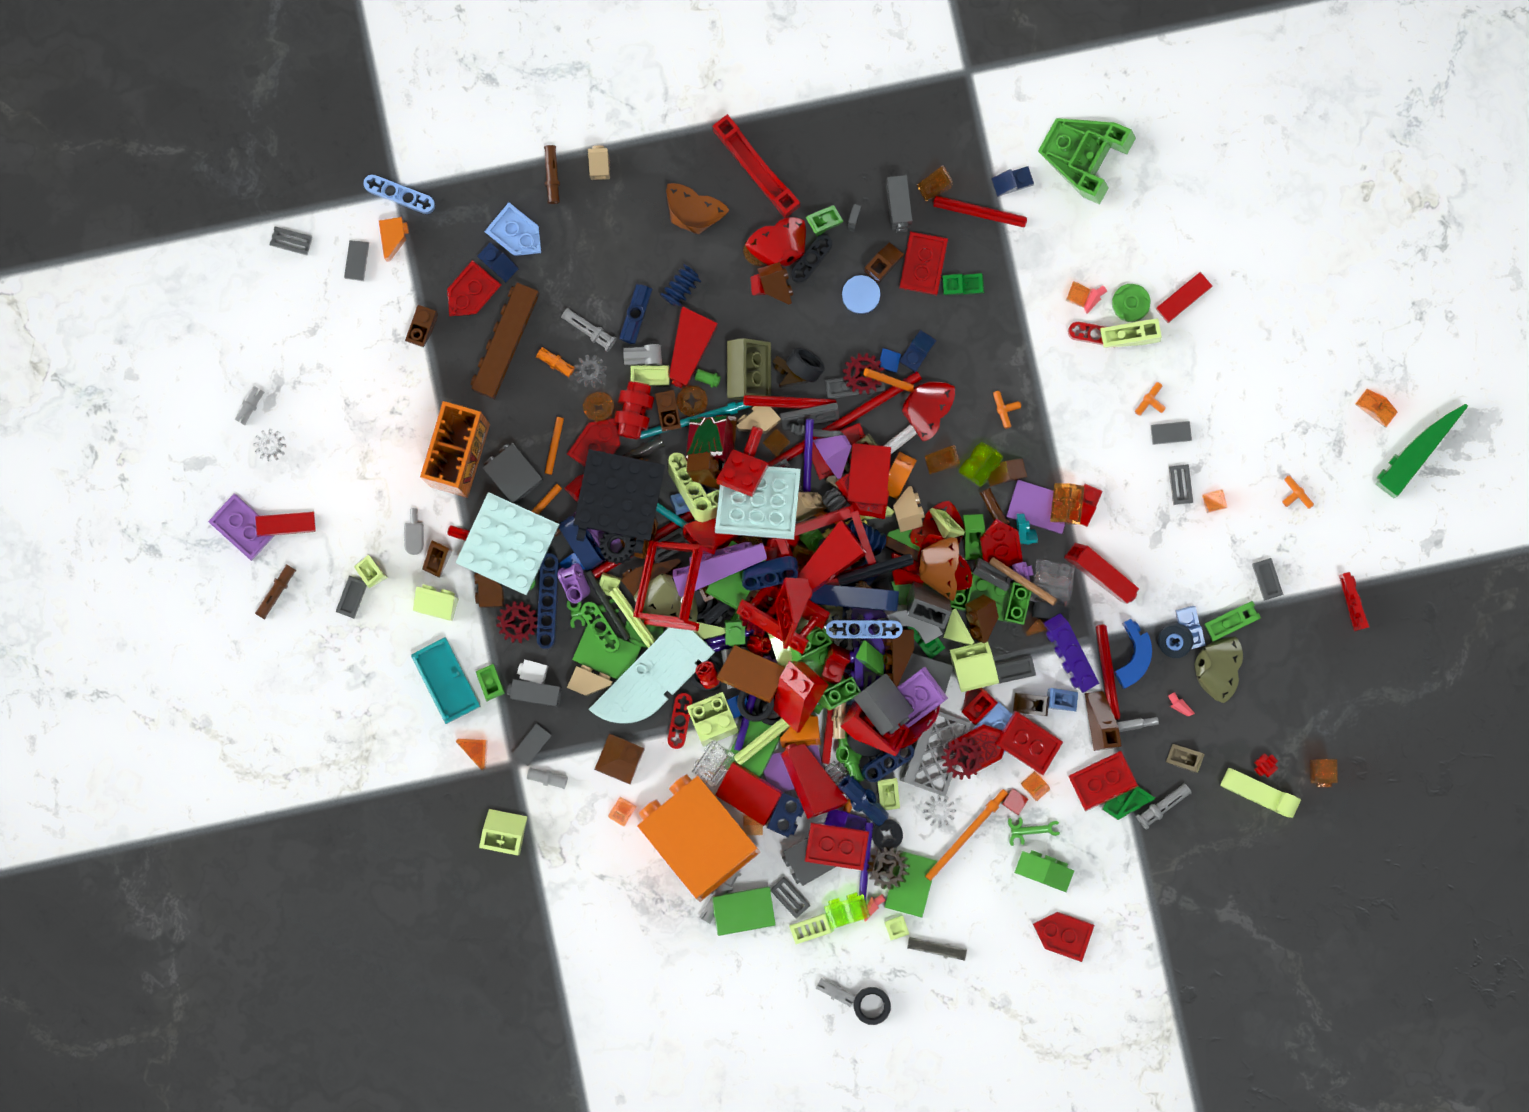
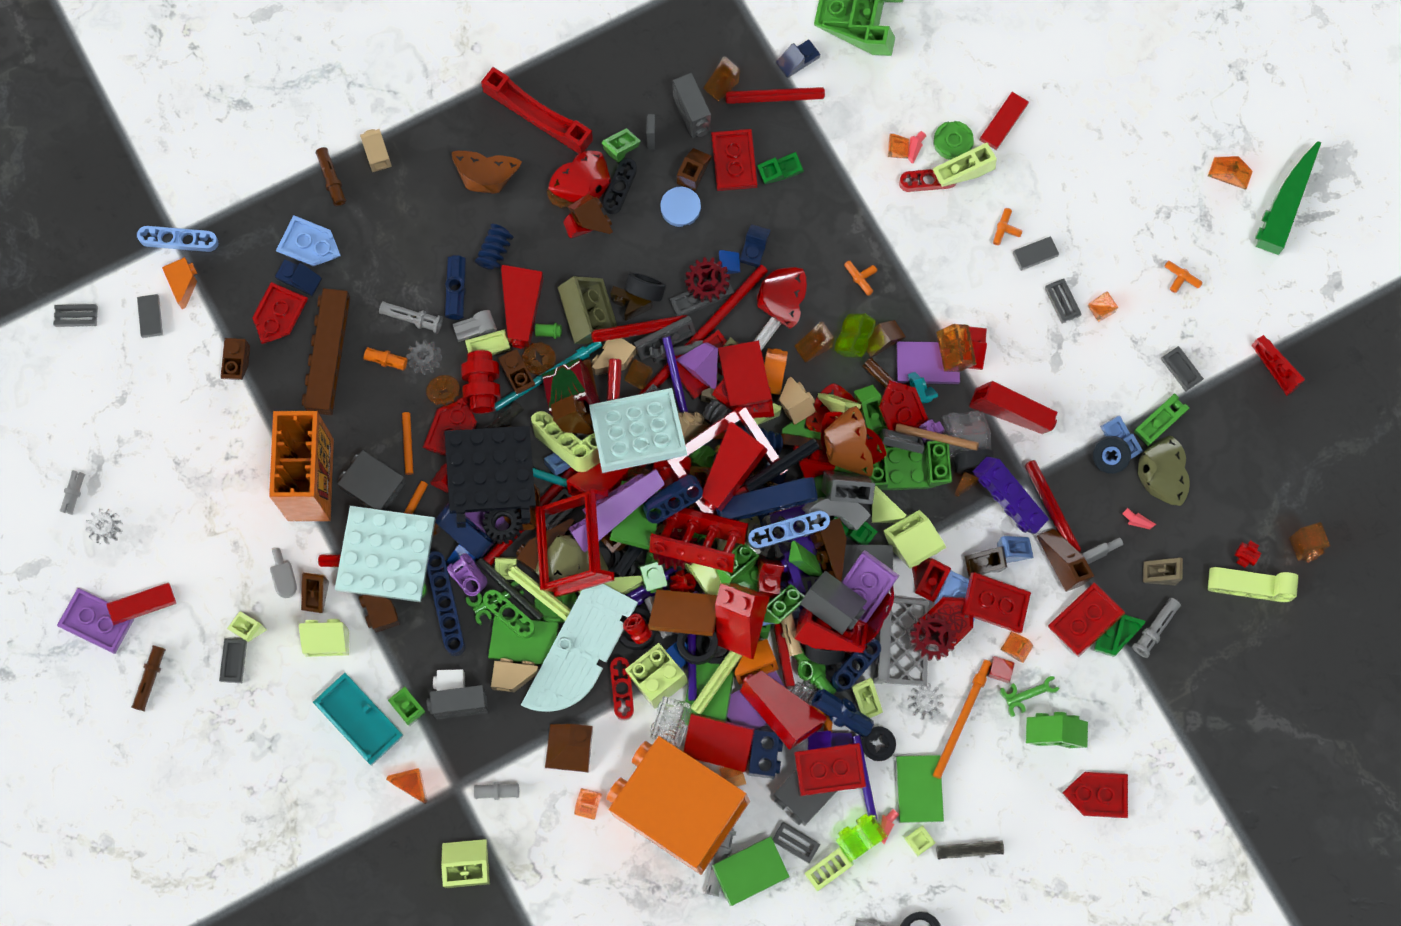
camera: 20 degrees left, 10 degrees down
(518, 631) = (410, 638): dark red gear -> none
(532, 744) = (470, 760): dark grey tile -> none
(742, 473) = (612, 407): red plate -> none
(790, 606) = (705, 523): red slope -> none
(889, 380) = (734, 276): orange bar -> none
(895, 864) = (885, 783): dark brown gear -> none
(982, 617) = (906, 487): reddish brown slope -> none
(1015, 670) = (958, 533): dark grey tile -> none
(1141, 656) = (1081, 478): blue arch -> none

